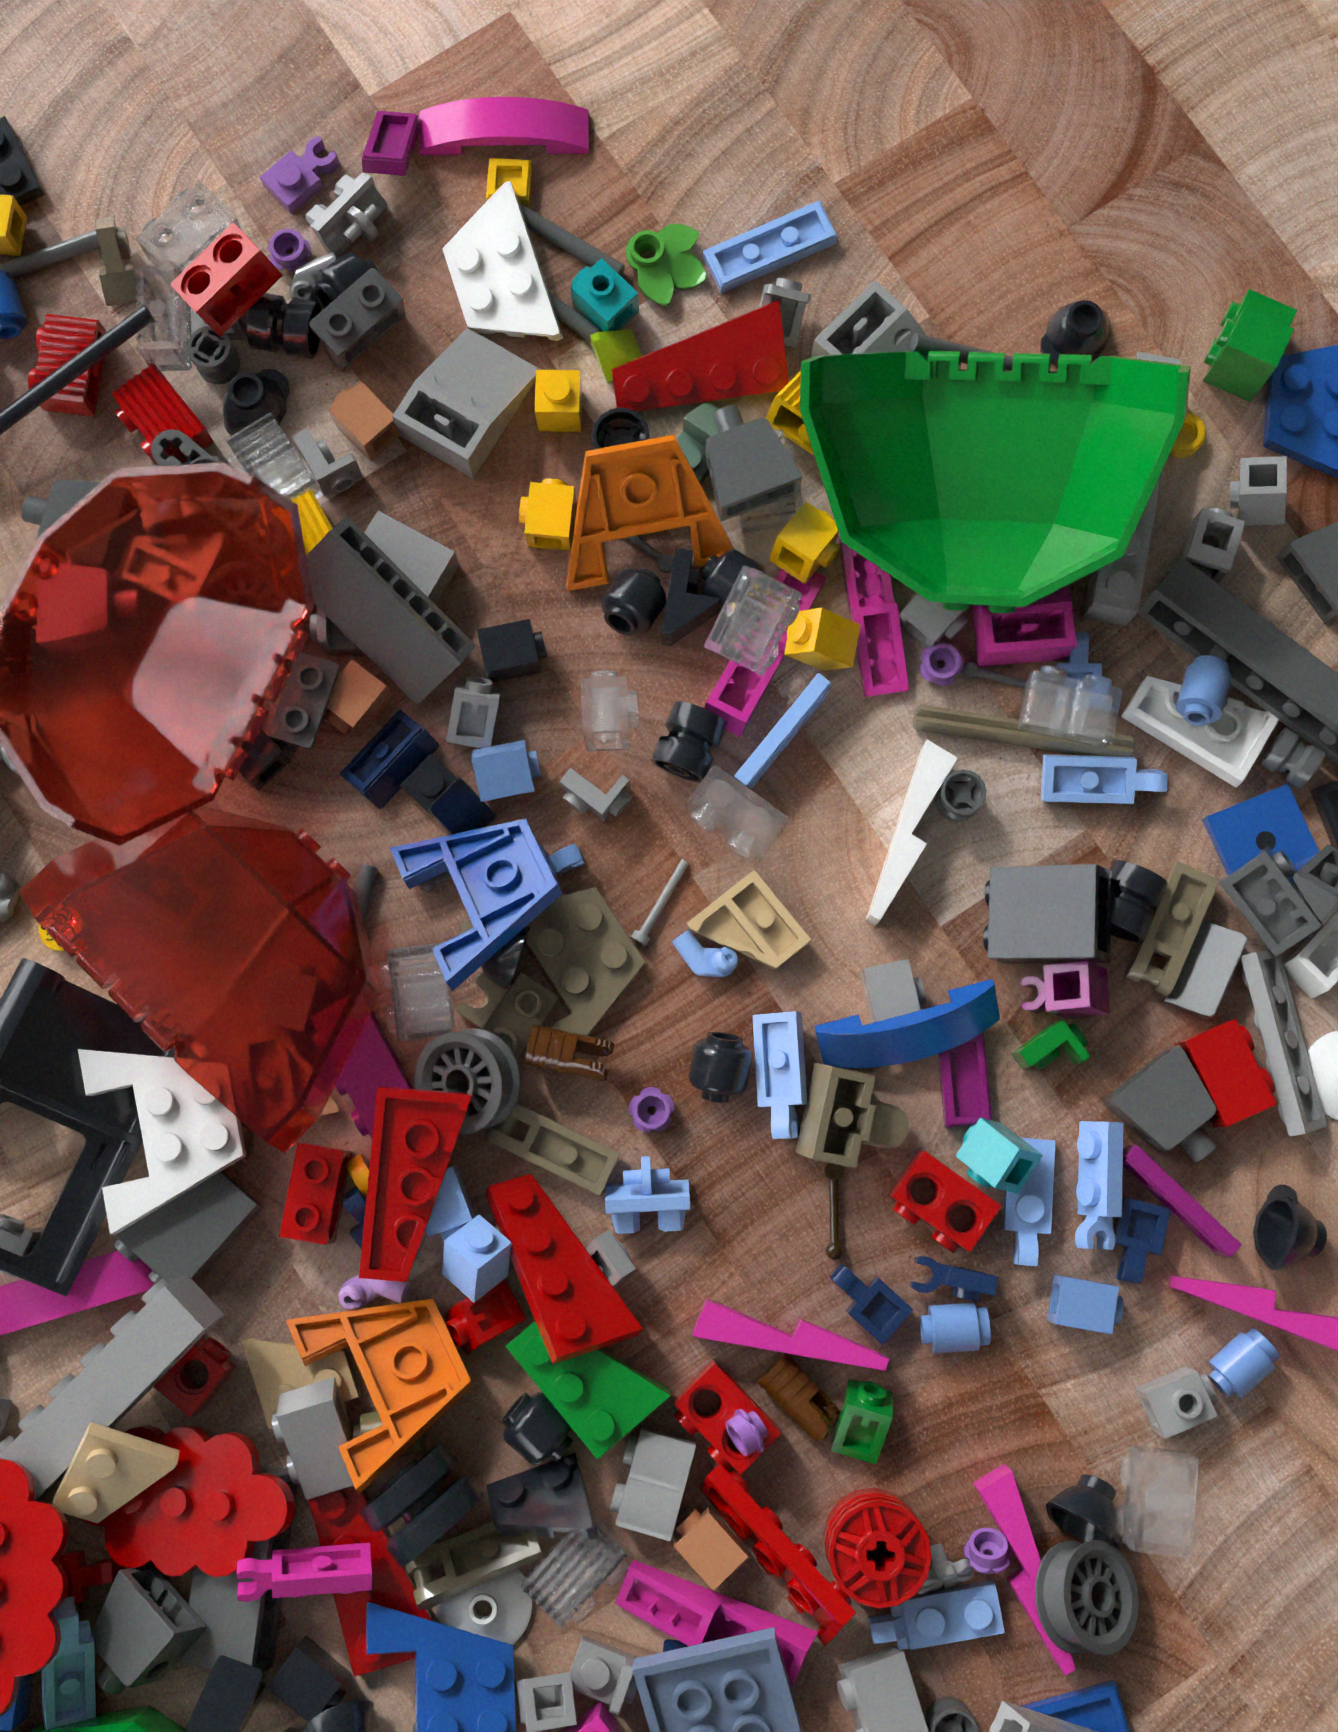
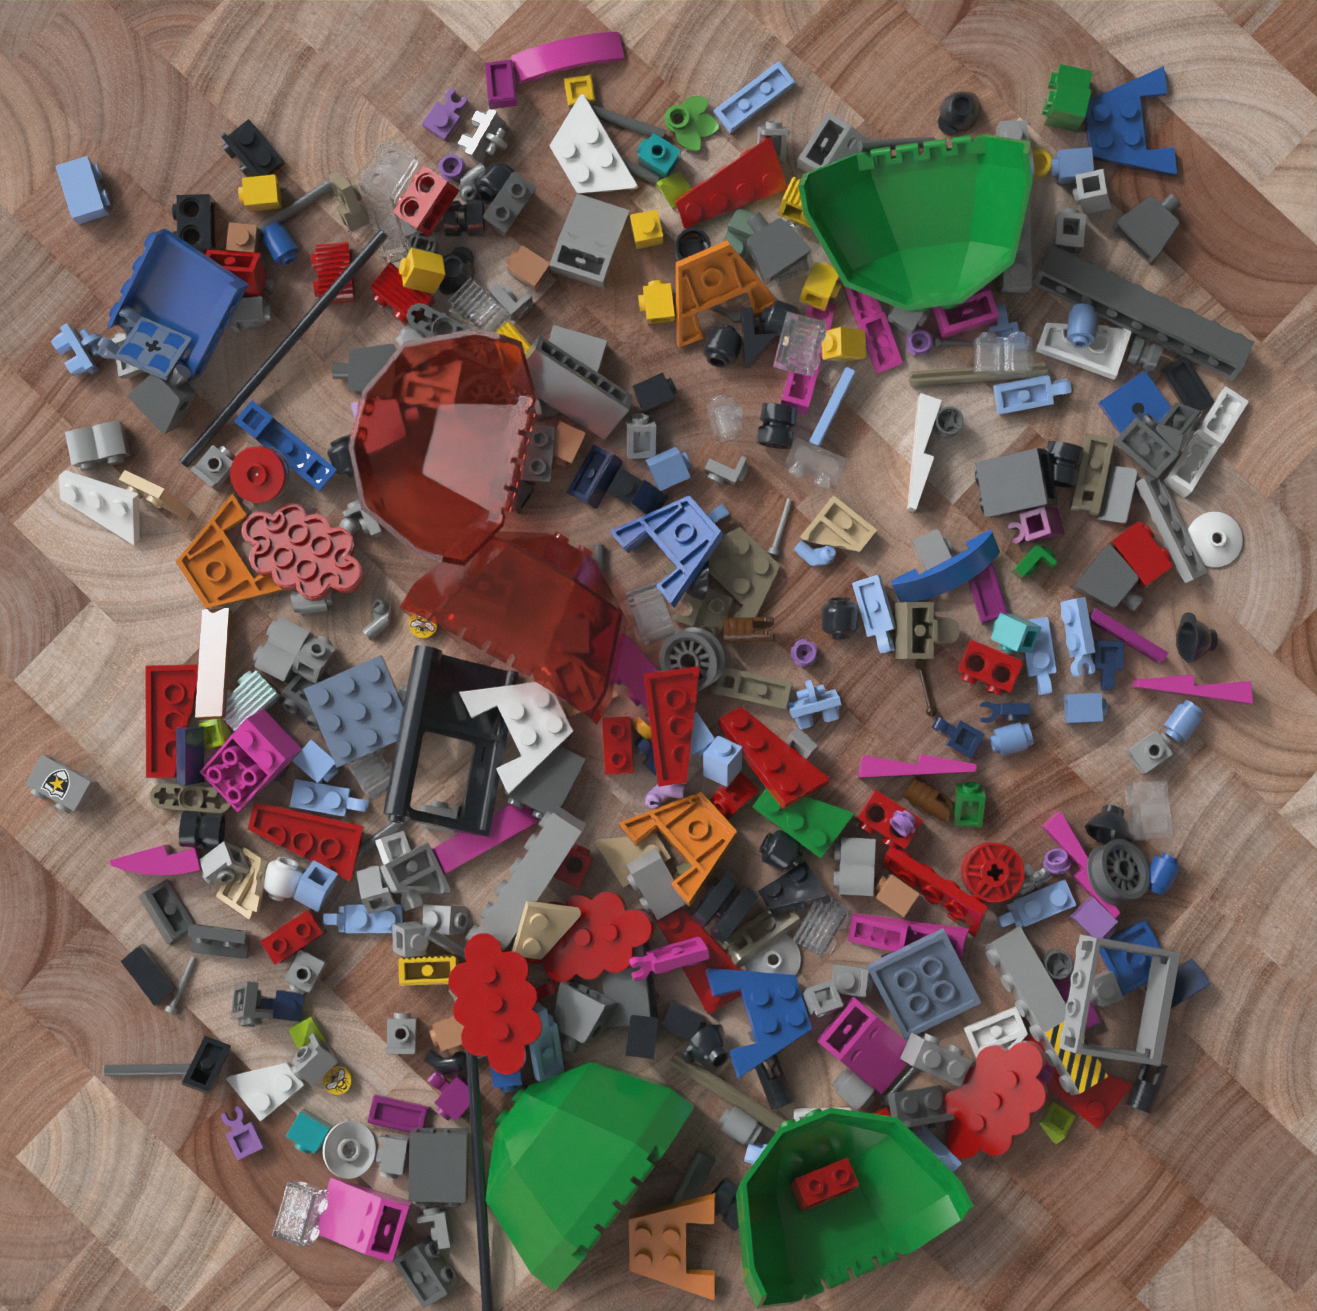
camera: 10 degrees left, 5 degrees up
(196, 384) = (422, 270): none -> yellow brick
(1030, 1666) = (1094, 919): none -> medium lavender brick
(1160, 1613) = (1163, 873): none -> blue brick
(1232, 440) = (1070, 163): none -> medium blue brick

